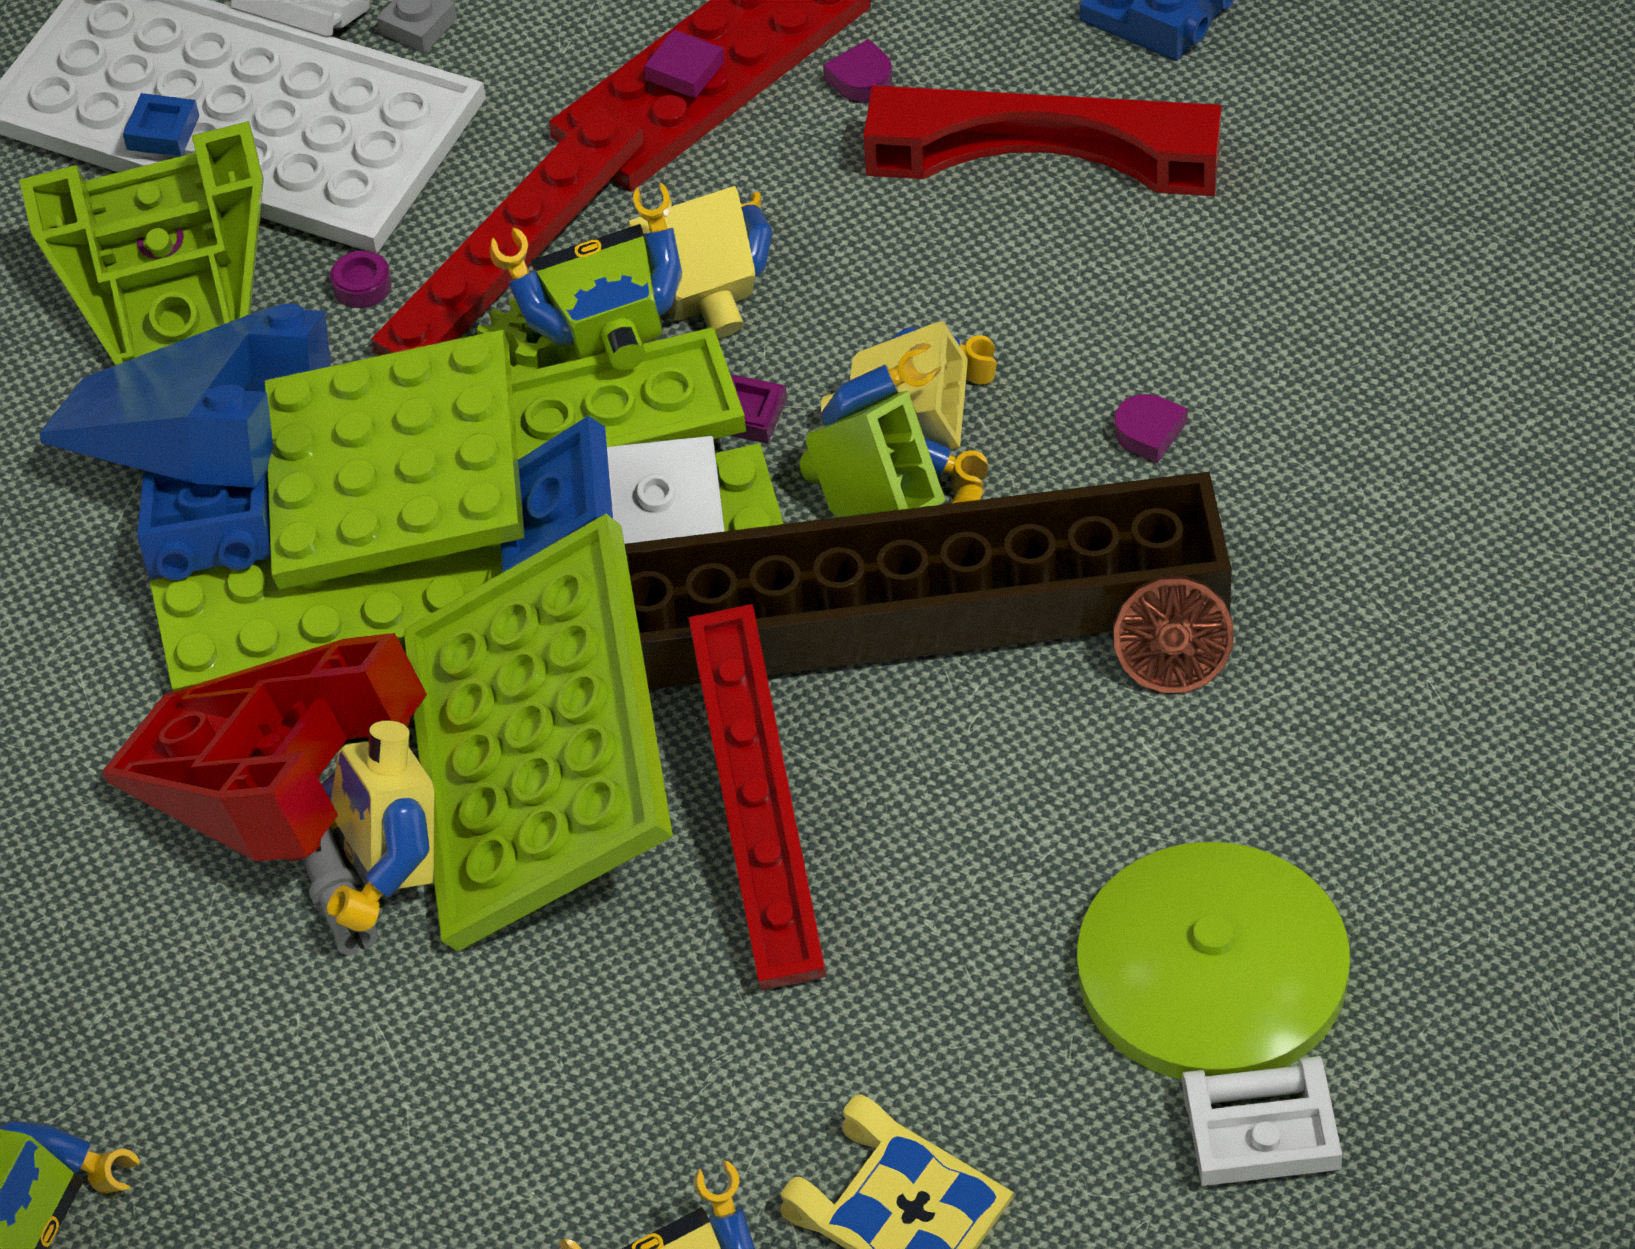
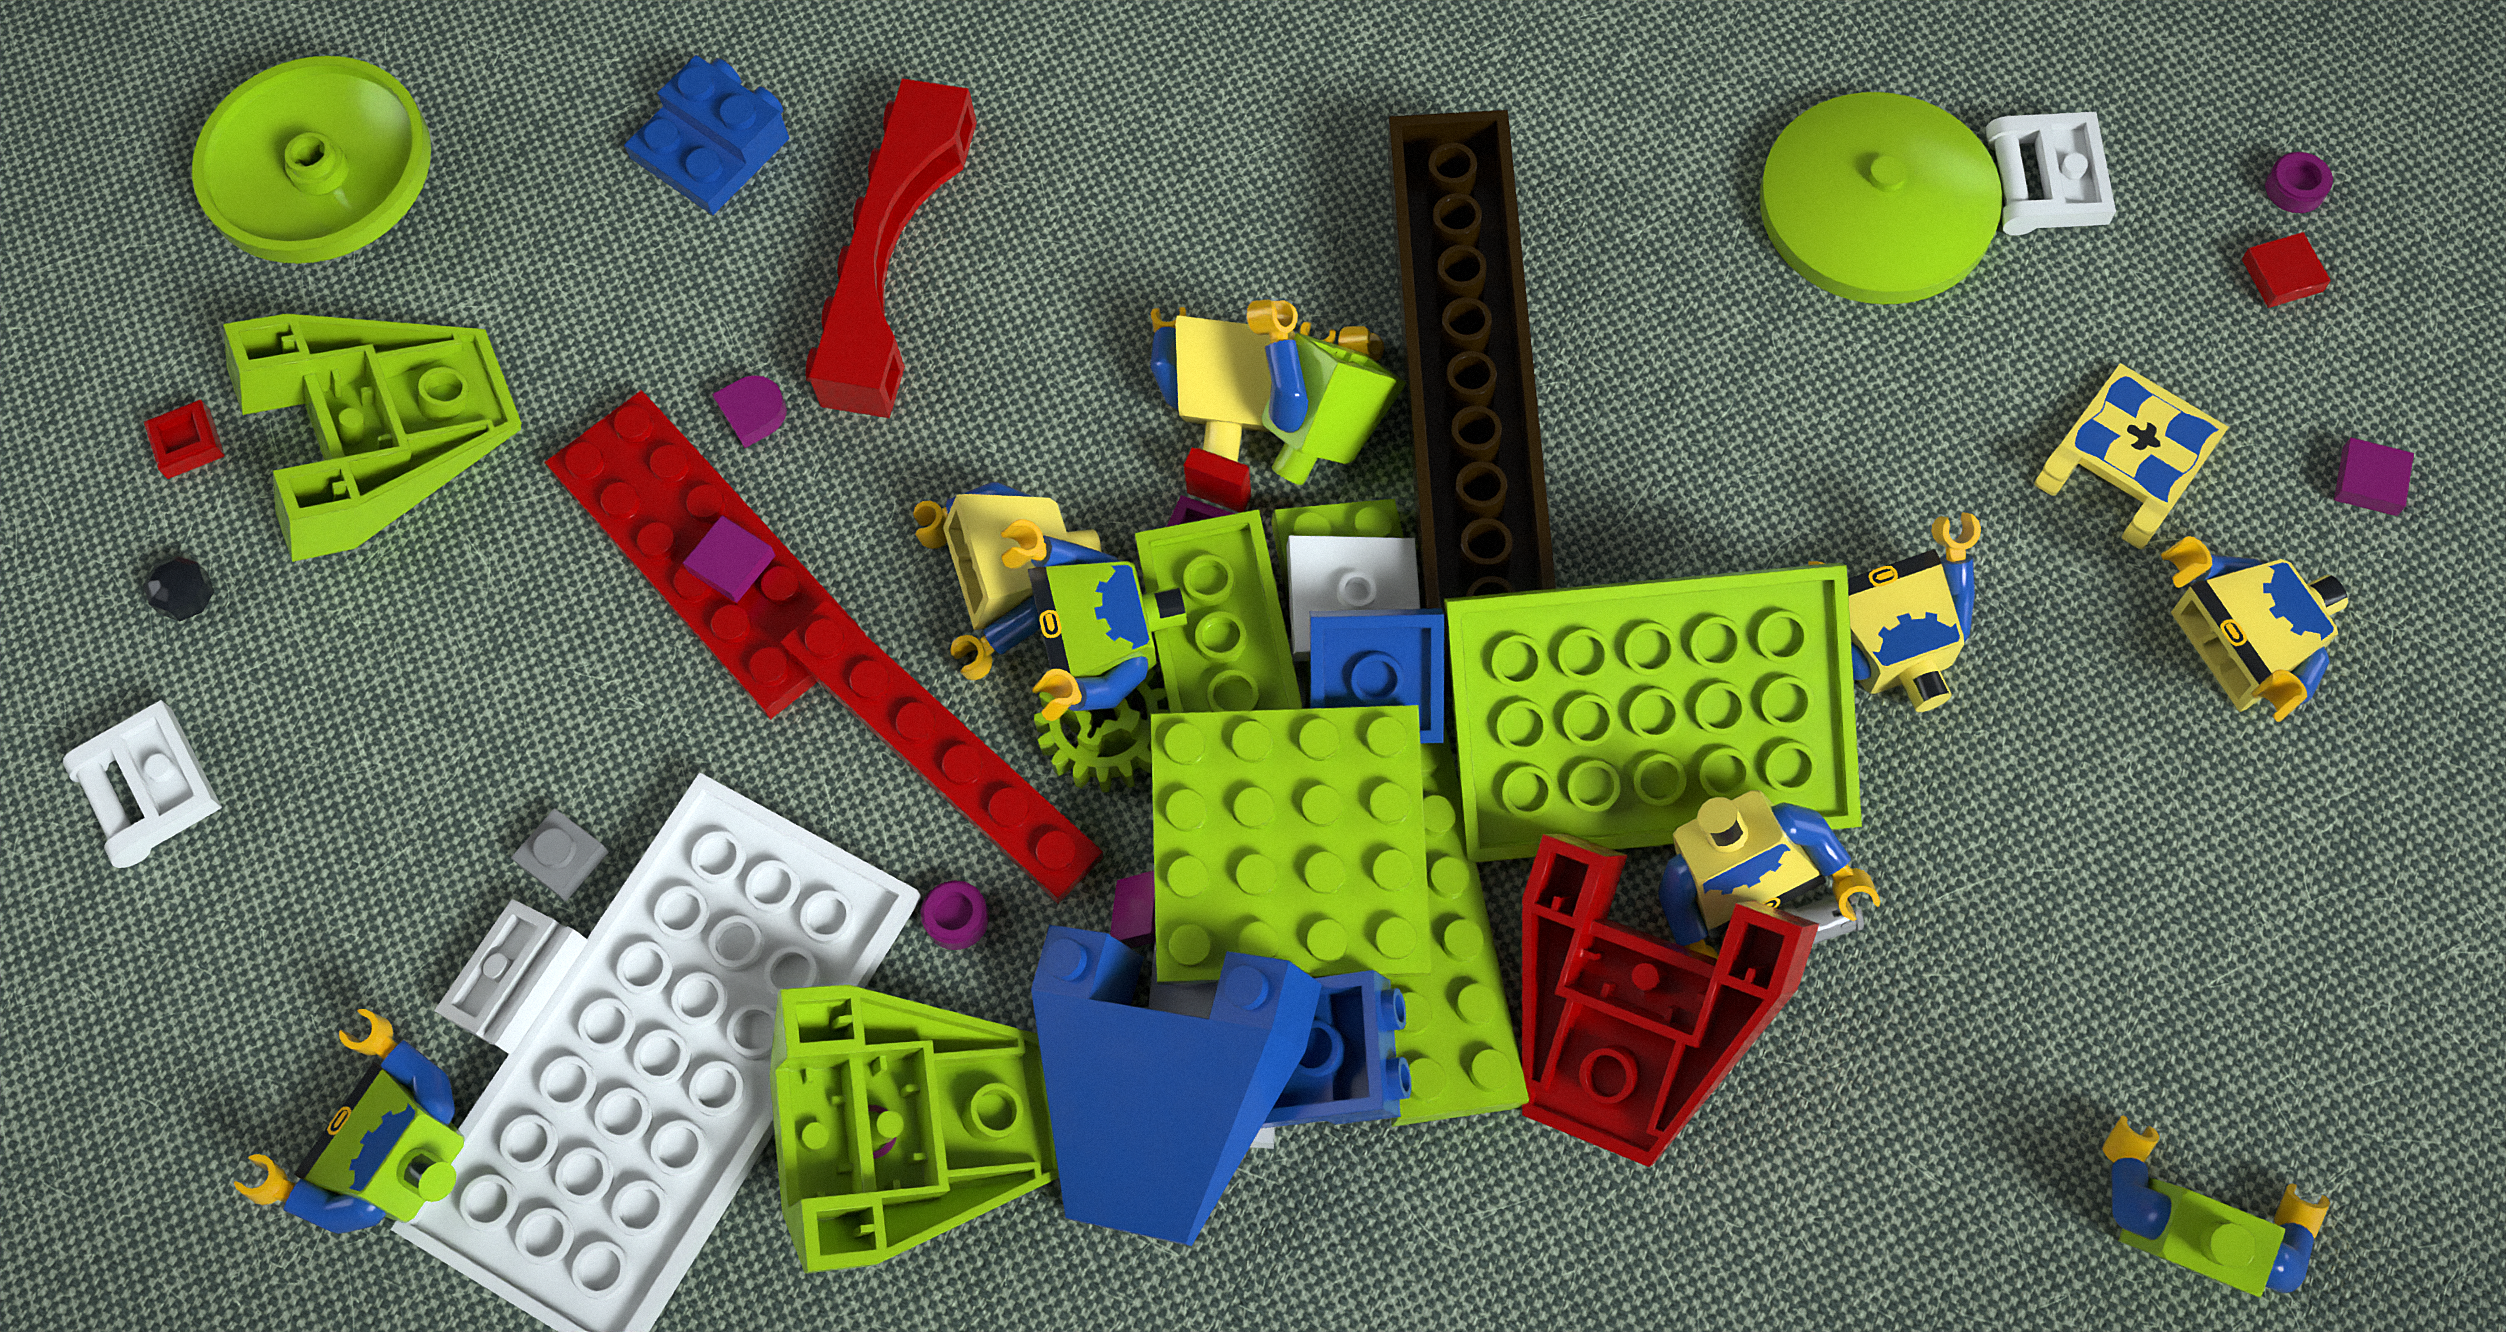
camera: 85 degrees left, 15 degrees up
(161, 125) = (711, 1121): blue plate -> none
(664, 955) = (1914, 617): none -> torso
(757, 798) = (1726, 521): red plate -> none
(798, 406) = (1217, 479): none -> red tile
(1149, 425) = (1270, 194): magenta tile -> none
(1173, 634) = (1546, 180): copper wheel -> none

